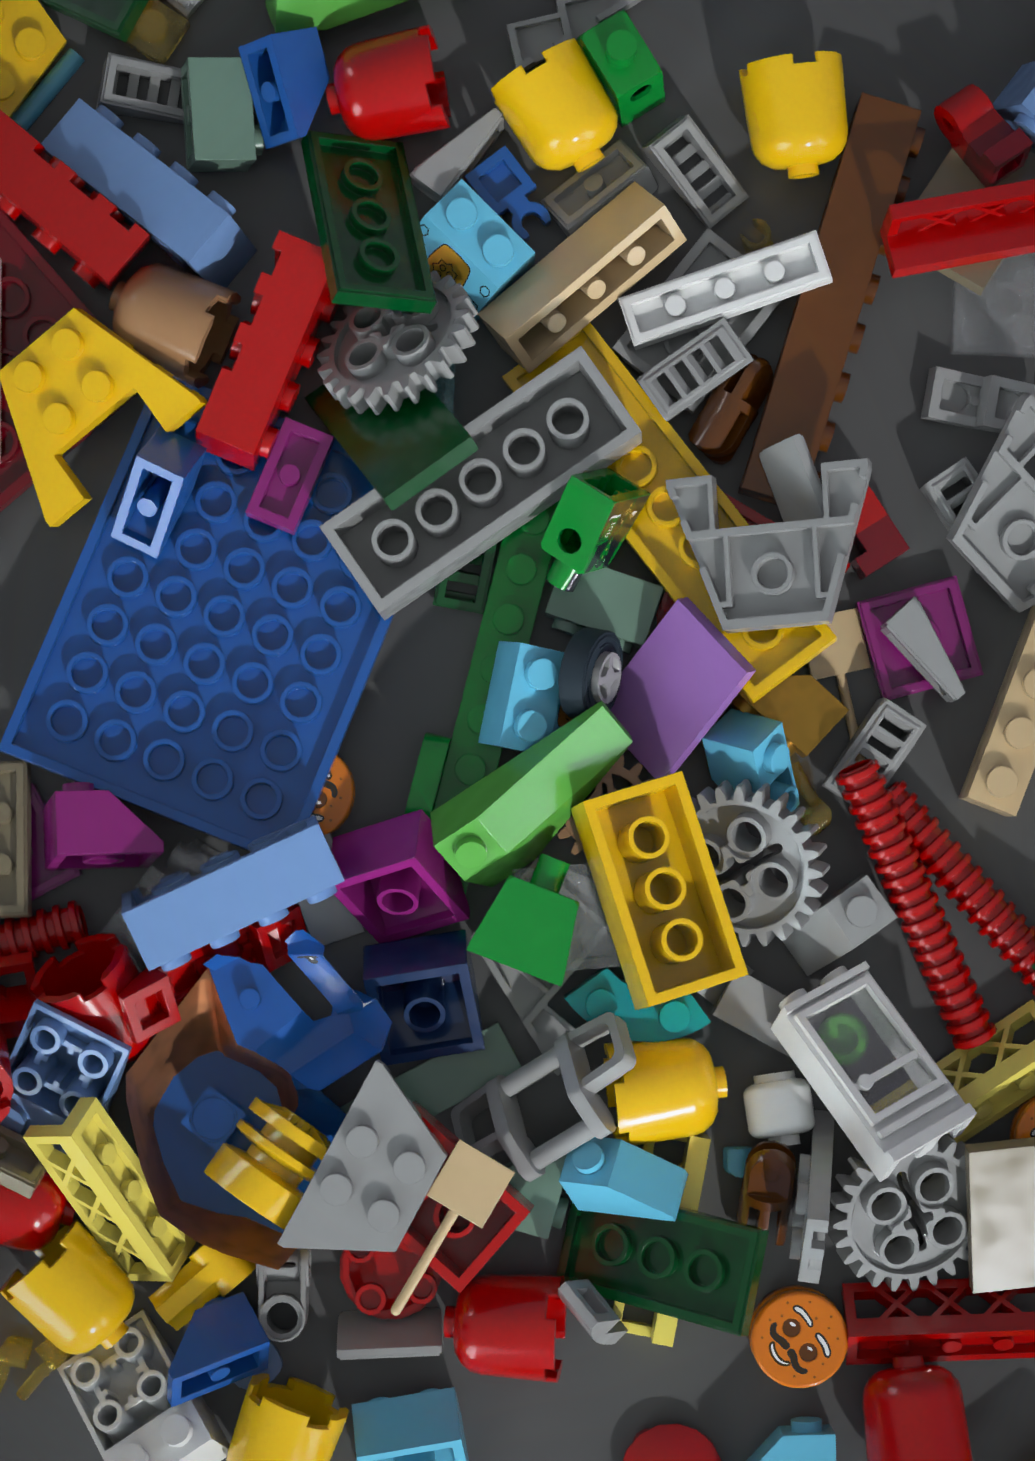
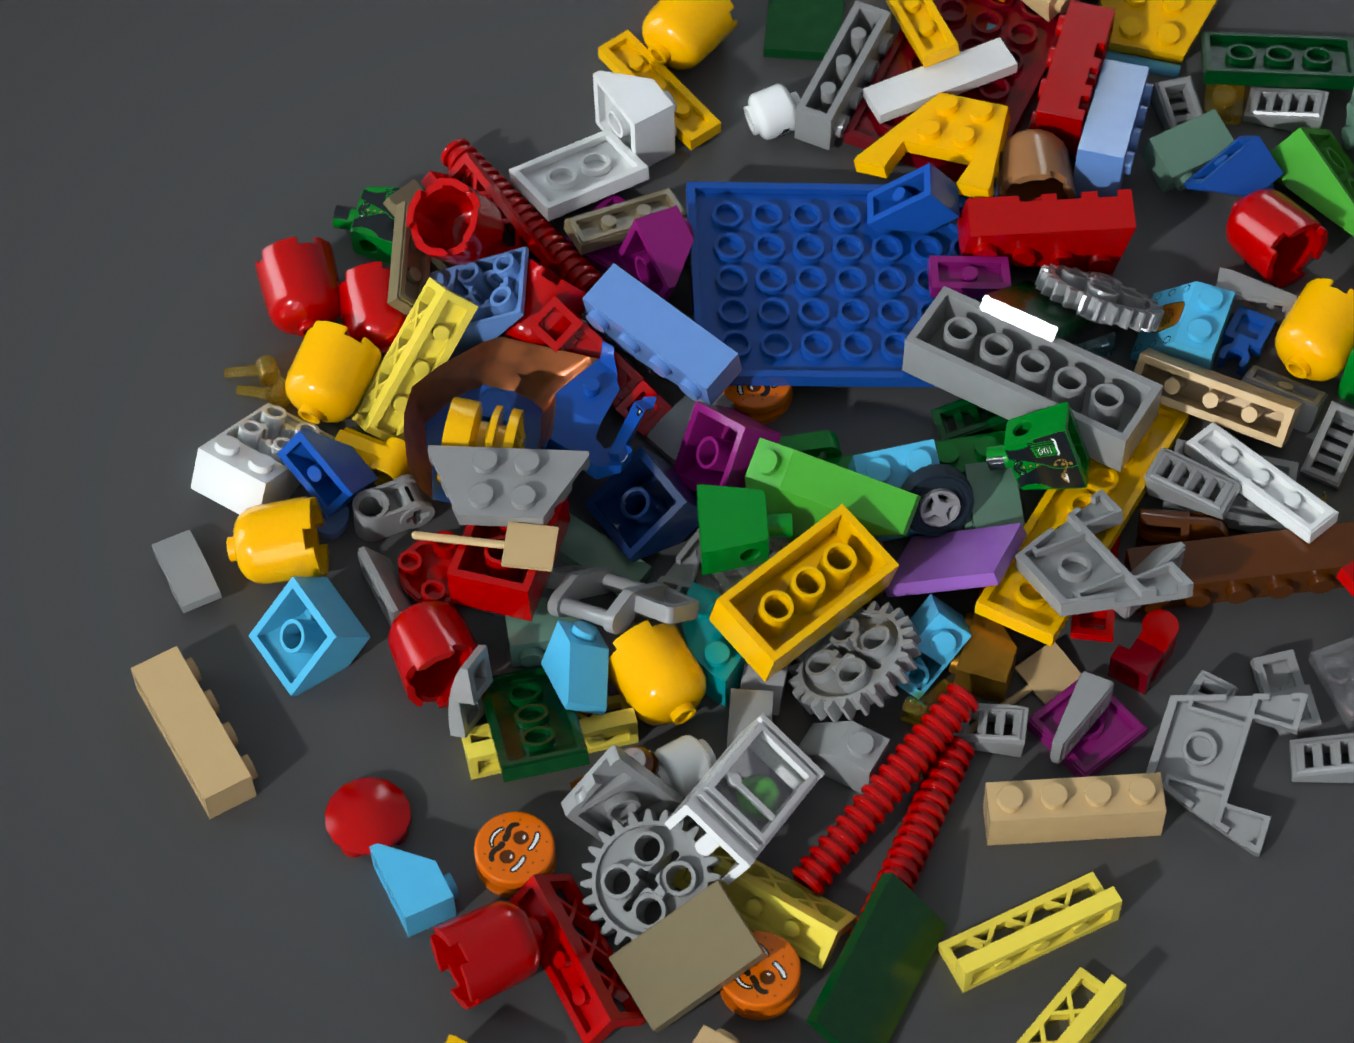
camera: 65 degrees right, 30 degrees down
(367, 223) = (1169, 245): dark green tile -> none

